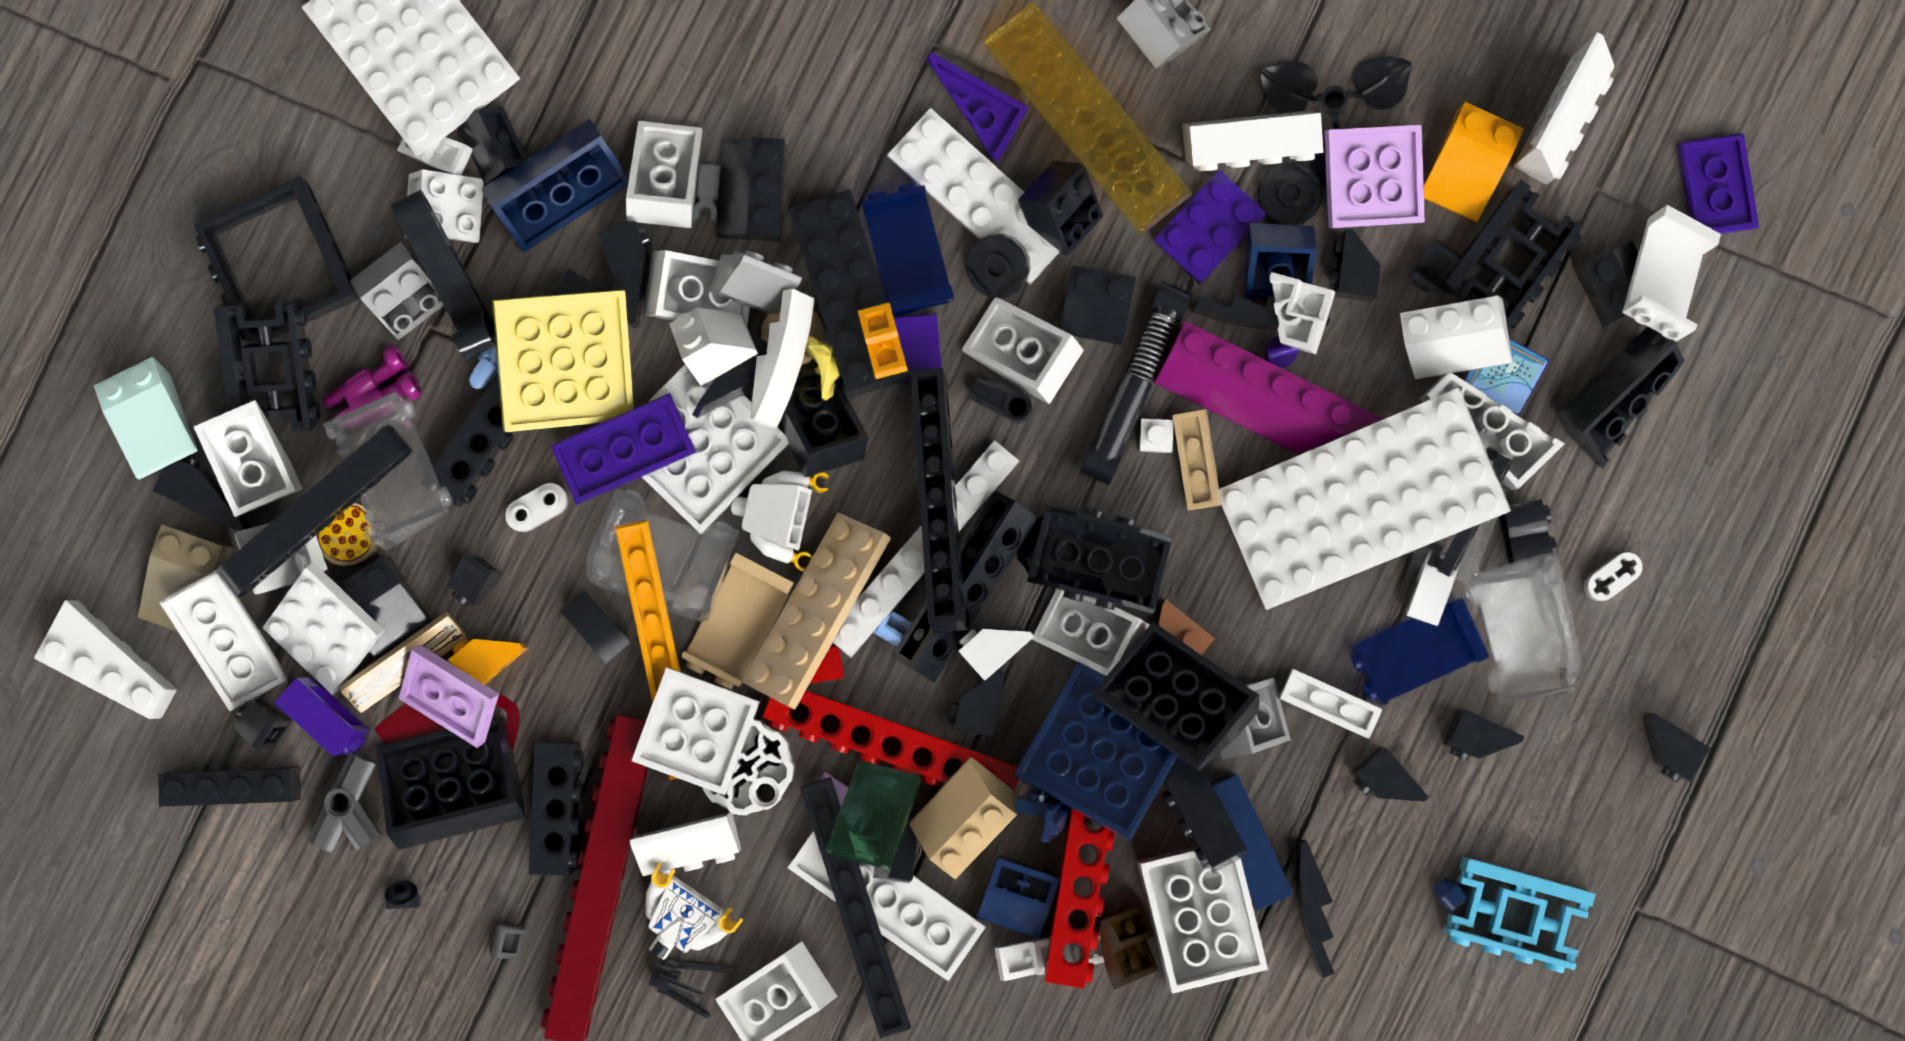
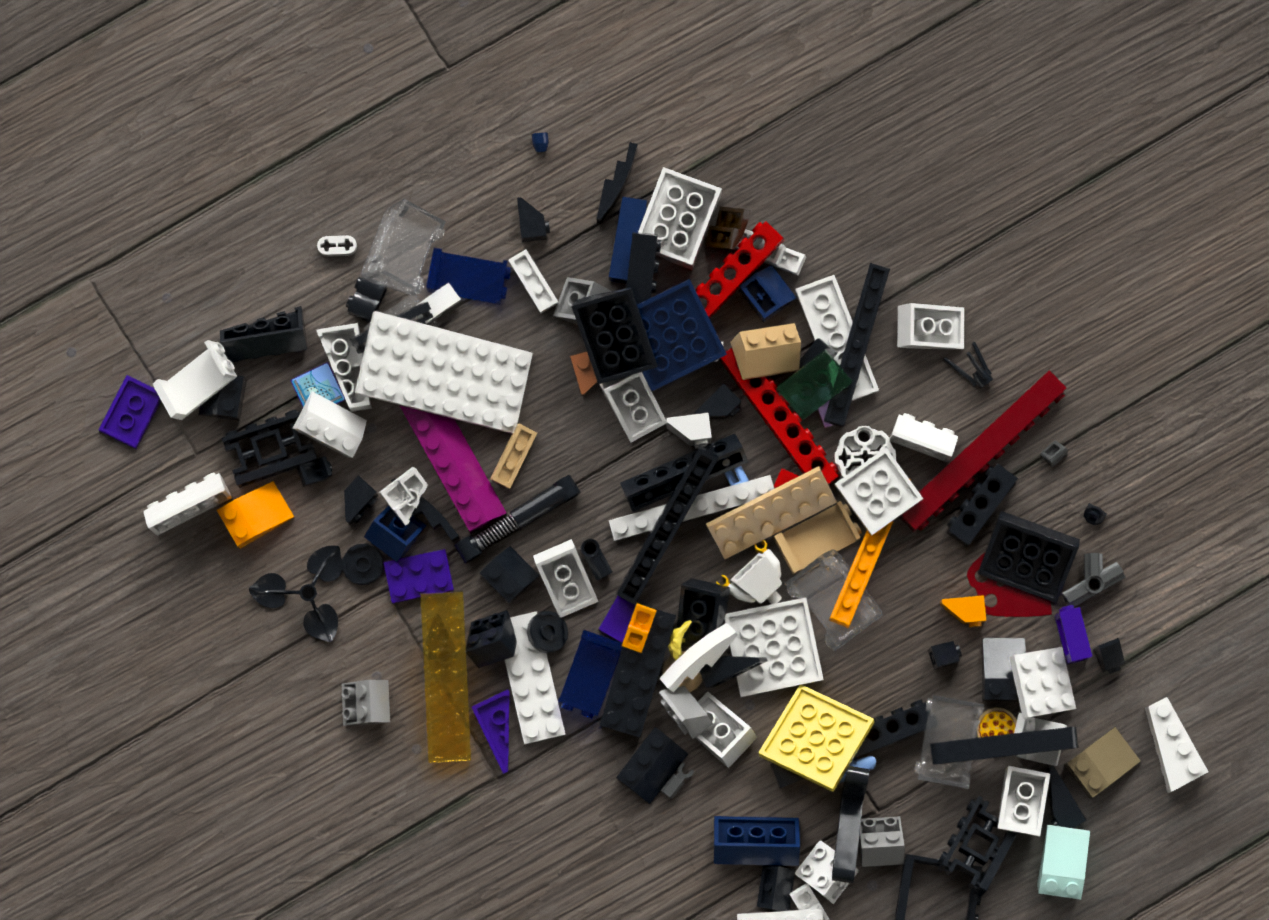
camera: 140 degrees left, 5 degrees down
(224, 640) = (1100, 713): white tile -> none
(229, 786) = (1148, 633): black brick -> none
(364, 384) = (937, 796): magenta piece -> none
(389, 670) = (1011, 637): tan tile -> none
(448, 696) = (998, 600): lavender plate -> none
(536, 508) = (885, 673): white plate -> none
(595, 627) = (896, 586): black slope -> none
(623, 449) = (816, 669): dark purple tile -> none
(628, 263) = (745, 773): black slope -> none
(664, 174) = (693, 806): white slope -> none
(683, 916) = (950, 401): torso -> none
(712, 342) = (729, 691): white slope -> none
(1041, 805) = (724, 329): dark blue bracket -> none
(1096, 558) = (605, 438): black slope -> none
(1156, 435) = (525, 484): white plate -> none
(1253, 138) = (364, 604): white brick -> none
(1280, 354) = (432, 482): dark purple plate -> none
(1374, 176) = (312, 540): lavender plate -> none
(1478, 736) = (468, 211): black slope -> none
(1525, 890) = (499, 118): medium azure fence -> none
(1674, 749) = (370, 135): black slope -> none

